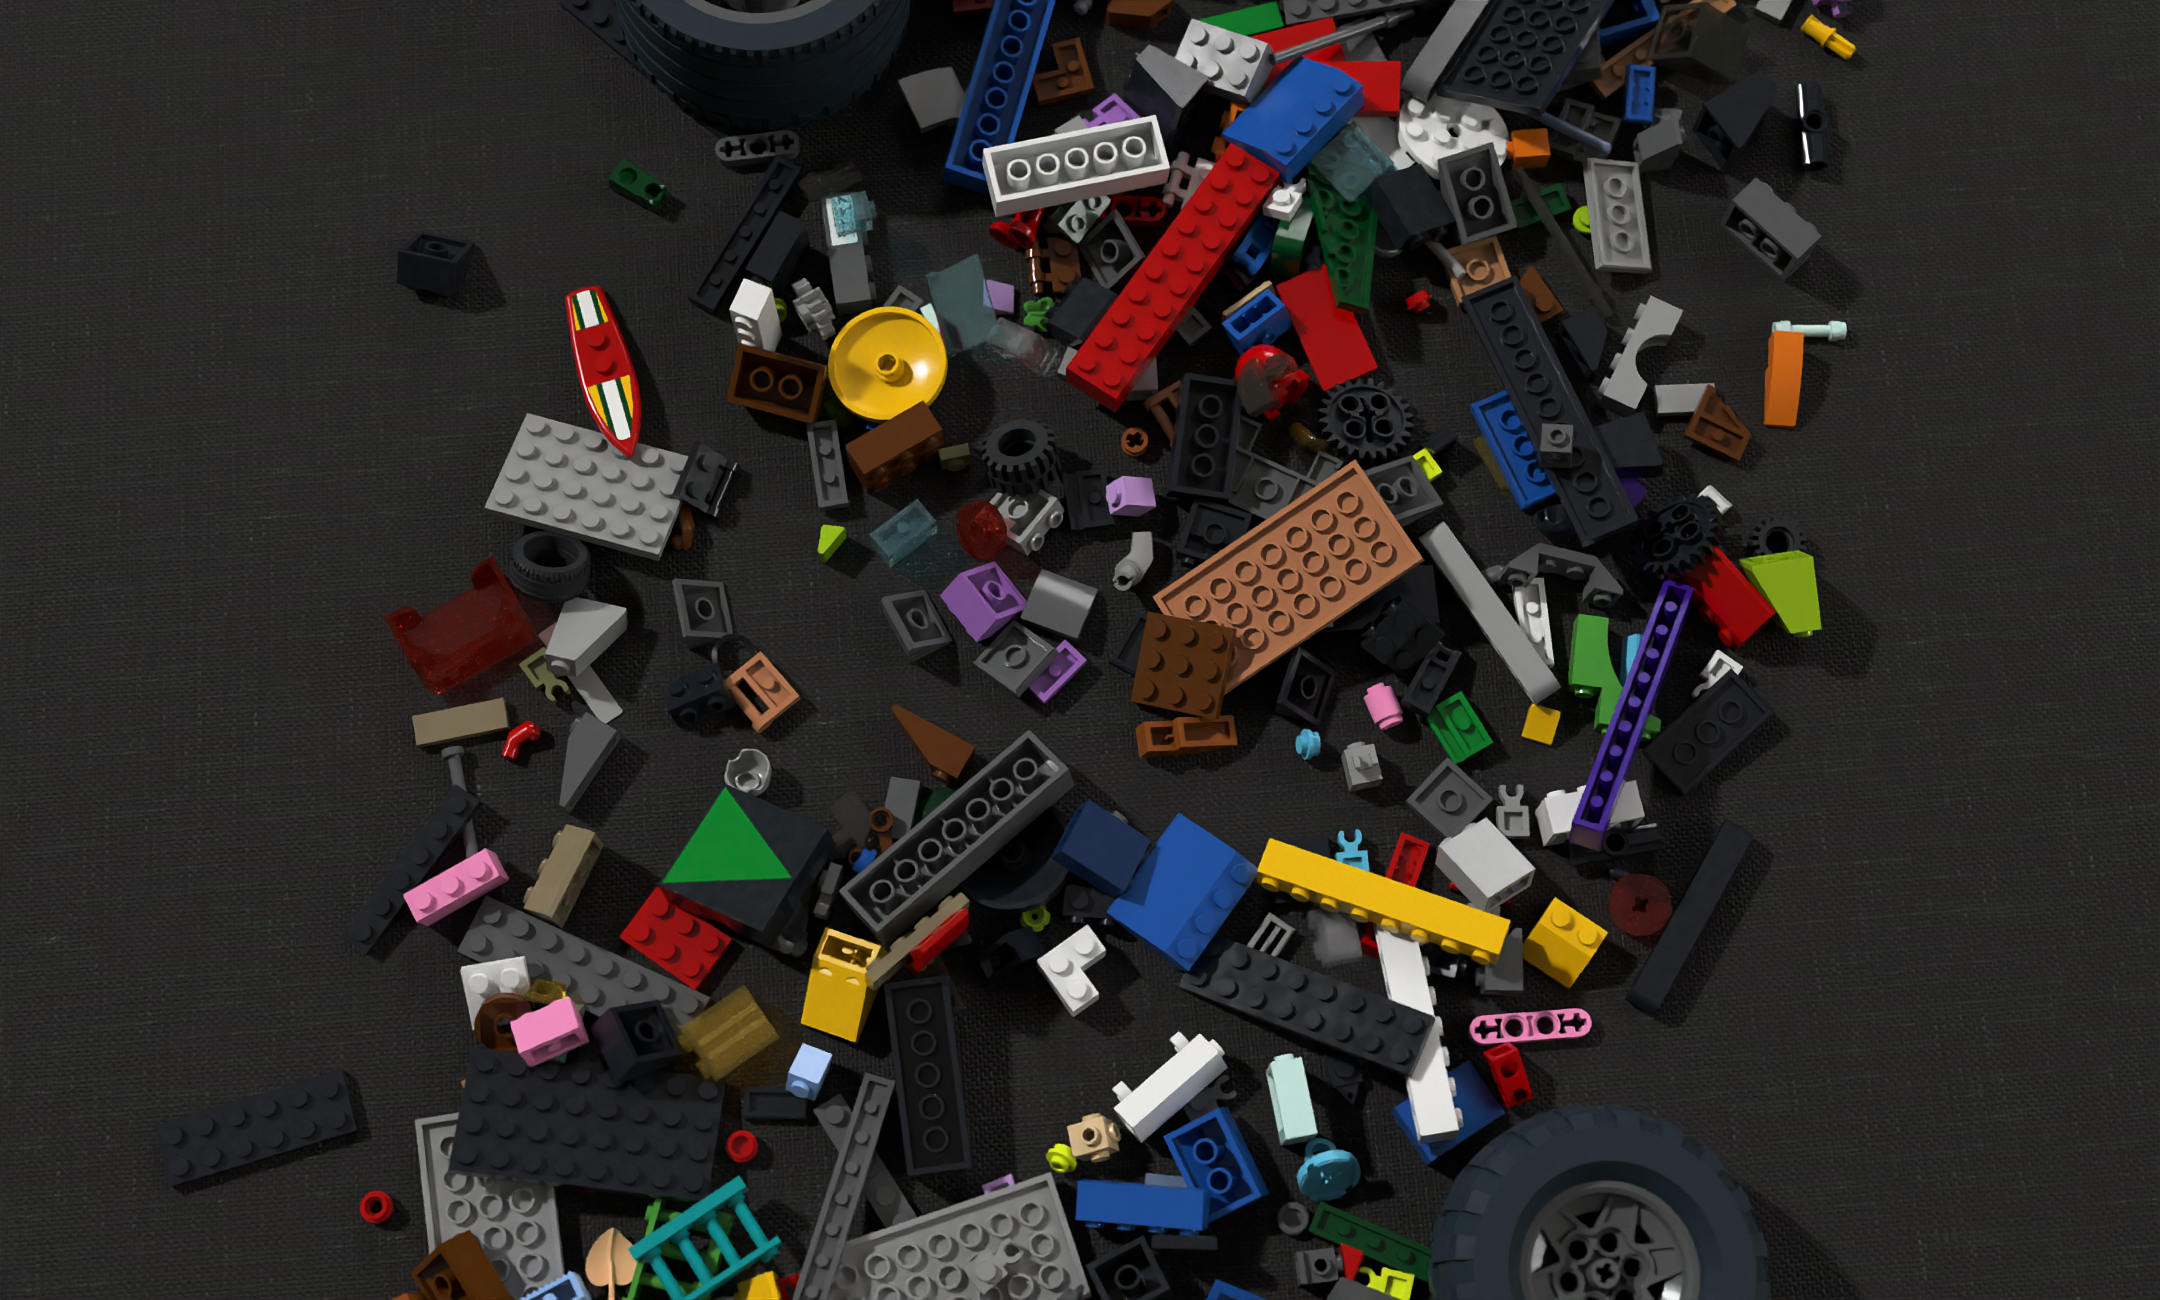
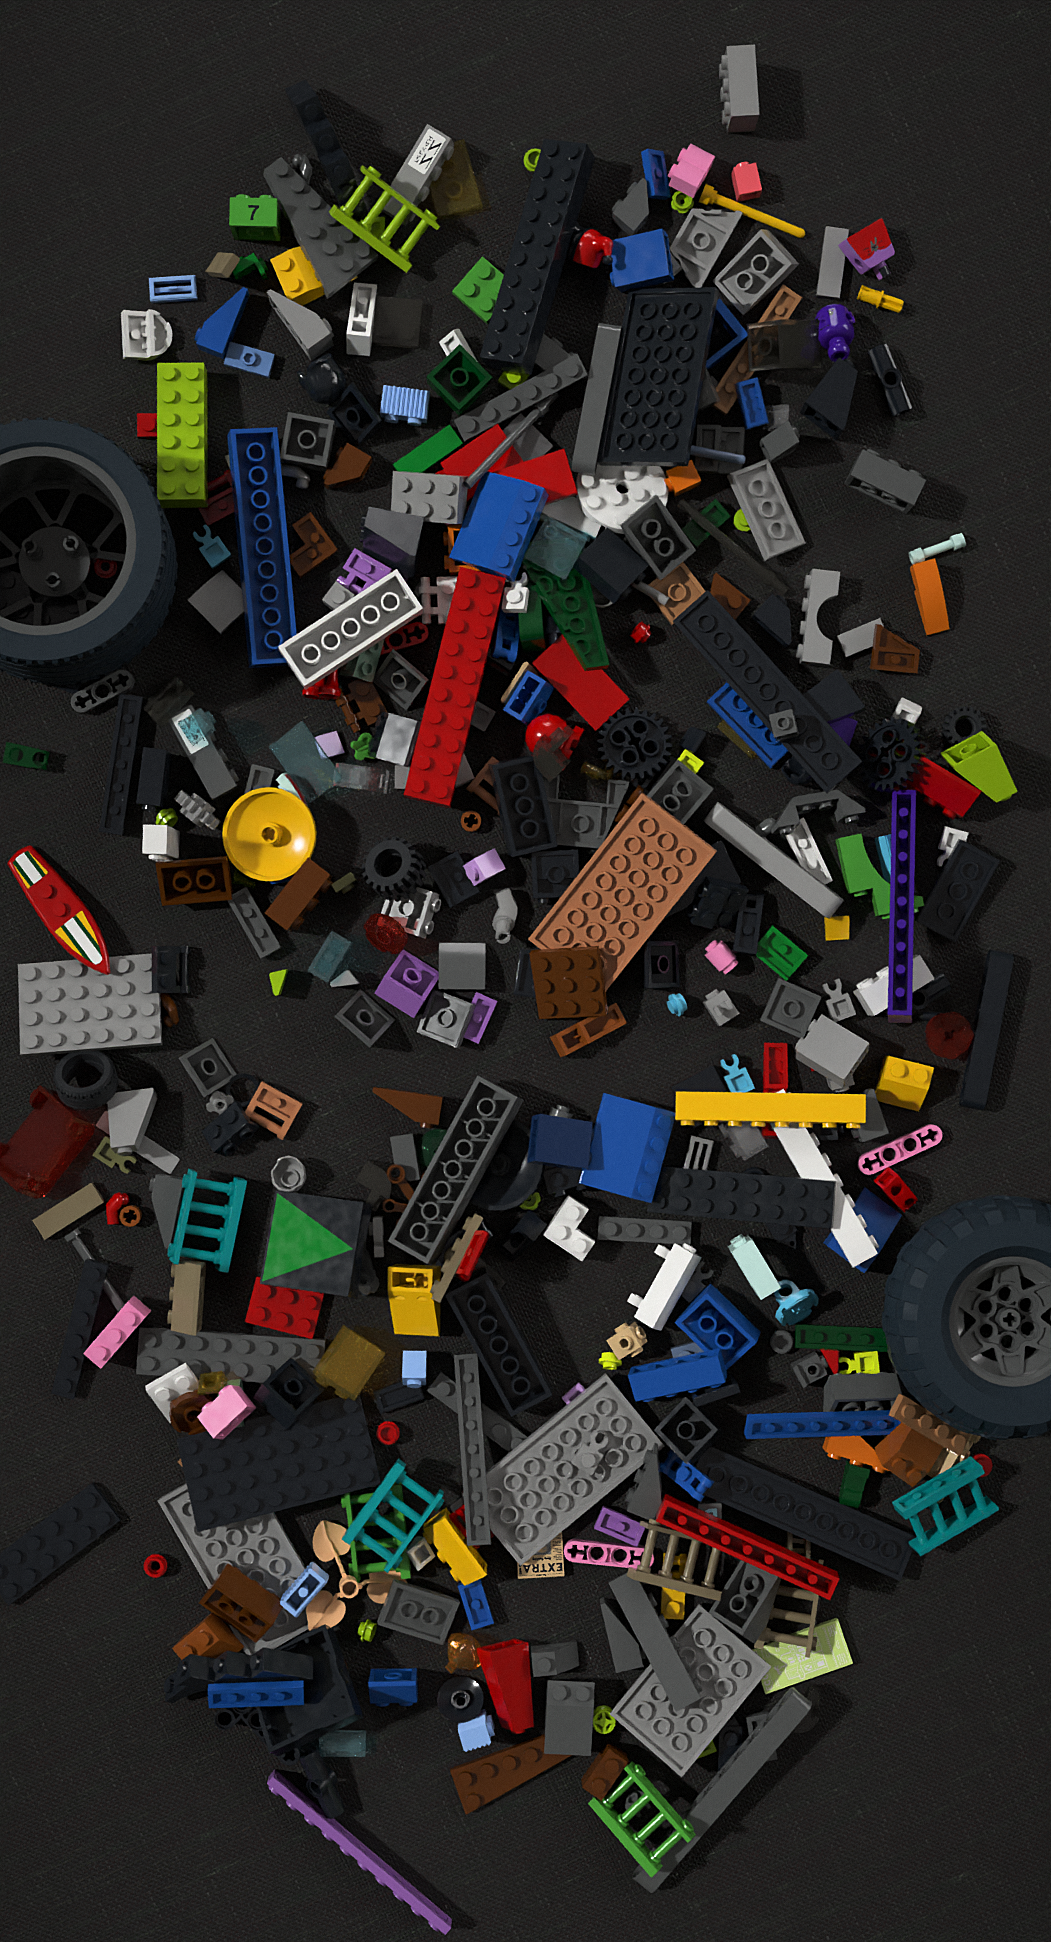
camera: 20 degrees left, 15 degrees up
(533, 765) = (127, 1209): none -> dark orange bush
(656, 793) = (225, 1235): none -> teal fence
(698, 650) = (217, 1097): none -> light grey plate
(863, 860) = (396, 1209): blue plate -> none
(909, 568) = (344, 979): none -> light grey slope
(949, 40) = (213, 549): none -> medium azure plate
(1165, 1008) = (644, 1230): none -> dark grey plate
(1766, 46) = (836, 330): none -> dark purple piece

